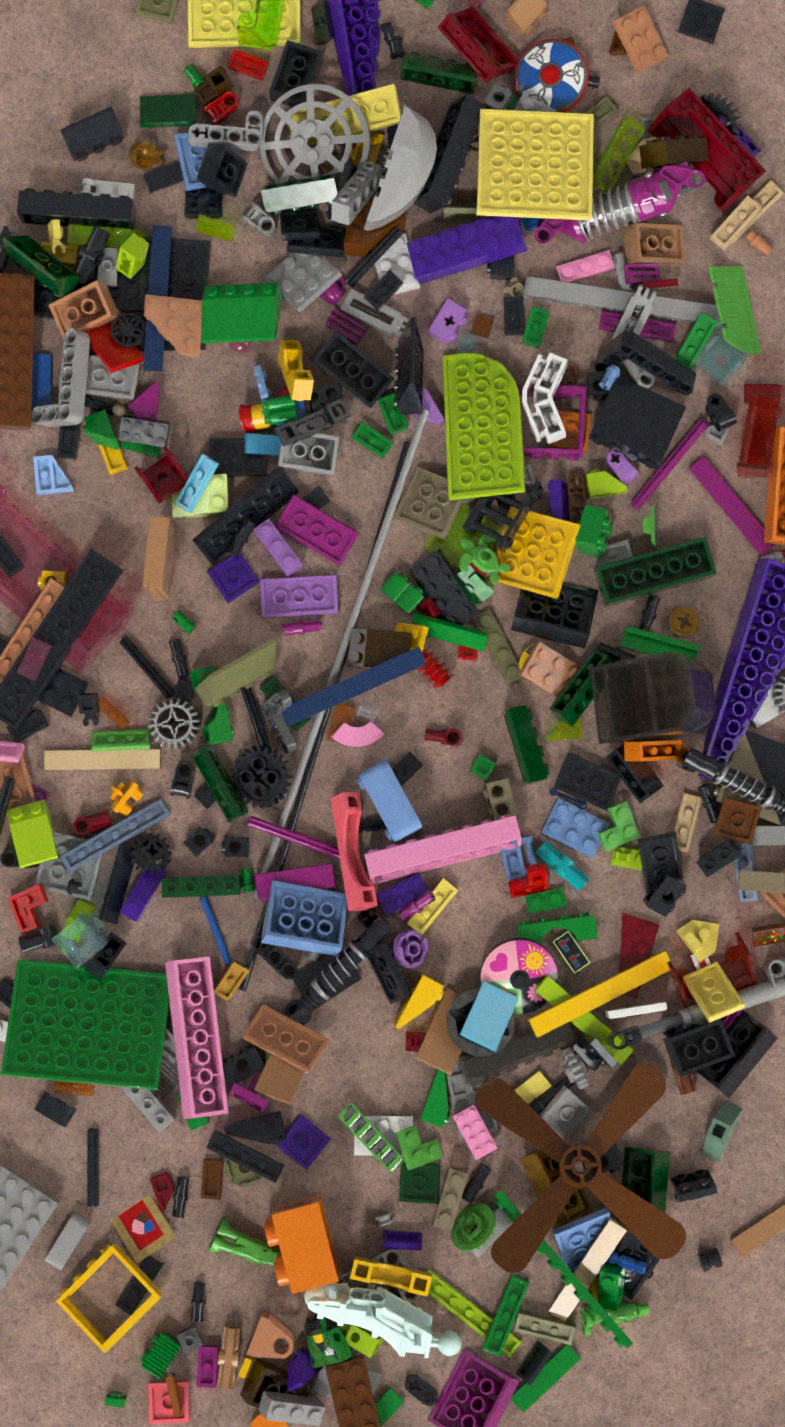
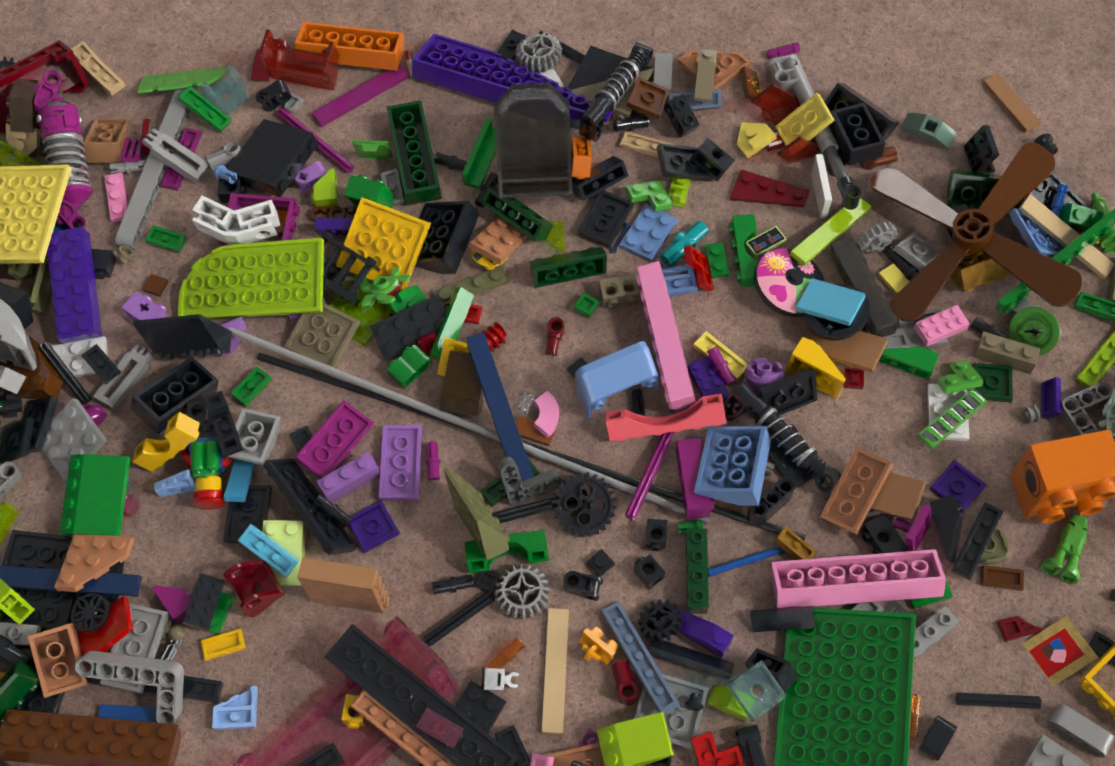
camera: 80 degrees left, 20 degrees down
(100, 430) = (195, 649): green slope -> none
(121, 740) = (536, 648): bright green tile -> none
(156, 967) = (783, 619): none -> black tile
(180, 1197) = (1024, 610): black pin -> none
(185, 623) = (414, 577): green pin -> none
(217, 785) = (589, 548): dark green fence -> none
(359, 334) = (121, 406): magenta tile -> none
(392, 1275) = (1091, 389): yellow arch -> none
(395, 422) = (228, 366): green plate -> none
(467, 344) = (170, 298): clear light blue tile -> none
(513, 316) = (150, 257): black plate -> none
(592, 1052) = (859, 221): black bracket -> none
(599, 994) = (807, 213): yellow tile -> none
(649, 358) = (199, 149): black beam -> none
(693, 619) = (462, 129): pearl gold gear -> none
(758, 242) = (124, 61): nougat pin -> none

